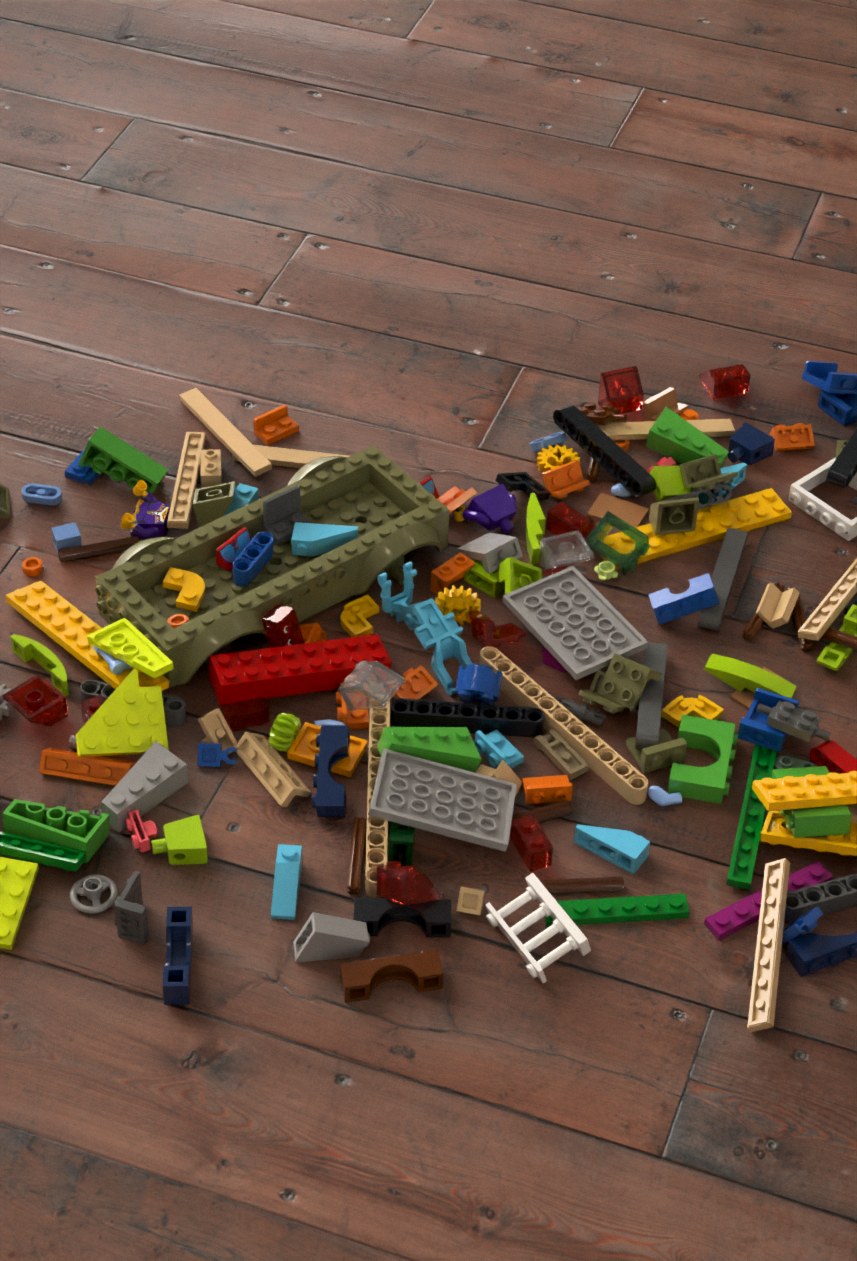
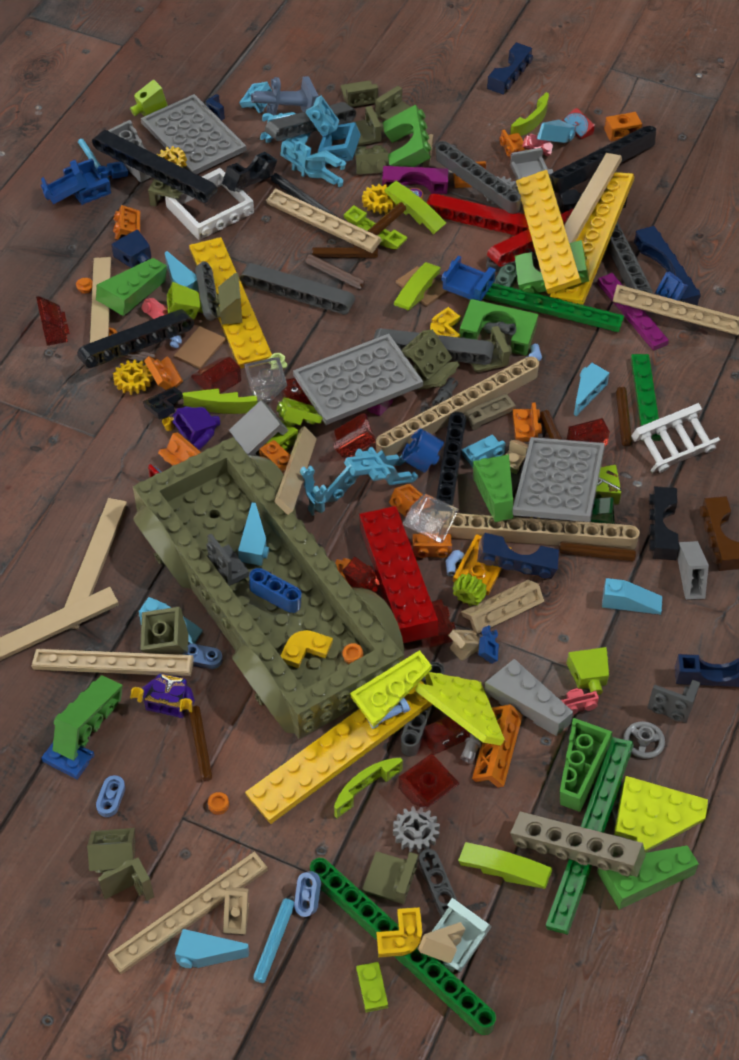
camera: 85 degrees left, 10 degrees up
(66, 536) = (187, 769): medium blue panel -> none
(211, 467) = (104, 639): tan brick -> none
(232, 548) = (259, 606): slope -> none
(274, 425) = (38, 589): orange bracket -> none
(354, 616) = (328, 537): yellow plate -> none
(405, 884) = (649, 512): clear red slope -> none
(426, 571) = (292, 478): none -> tan tile
(456, 860) = (609, 484): none -> lime torso
(458, 602) = (325, 456): yellow gear -> none
(470, 900) = (645, 479): tan plate -> none
(553, 439) = (103, 381): medium blue plate -> none
(603, 414) = (74, 339): reddish brown plate -> none
(628, 561) = (245, 354): clear green panel -> none
(655, 405) = (73, 297): medium nougat panel -> none
(673, 606) = (332, 324): blue arch -> none
(693, 755) = (506, 328): none -> dark grey pin
(704, 473) = (194, 271): olive bracket -> none
(726, 381) = (39, 253): clear red slope -> none
(777, 606) = (337, 257): tan panel -> none
(794, 721) = (478, 261): dark grey plate -> none

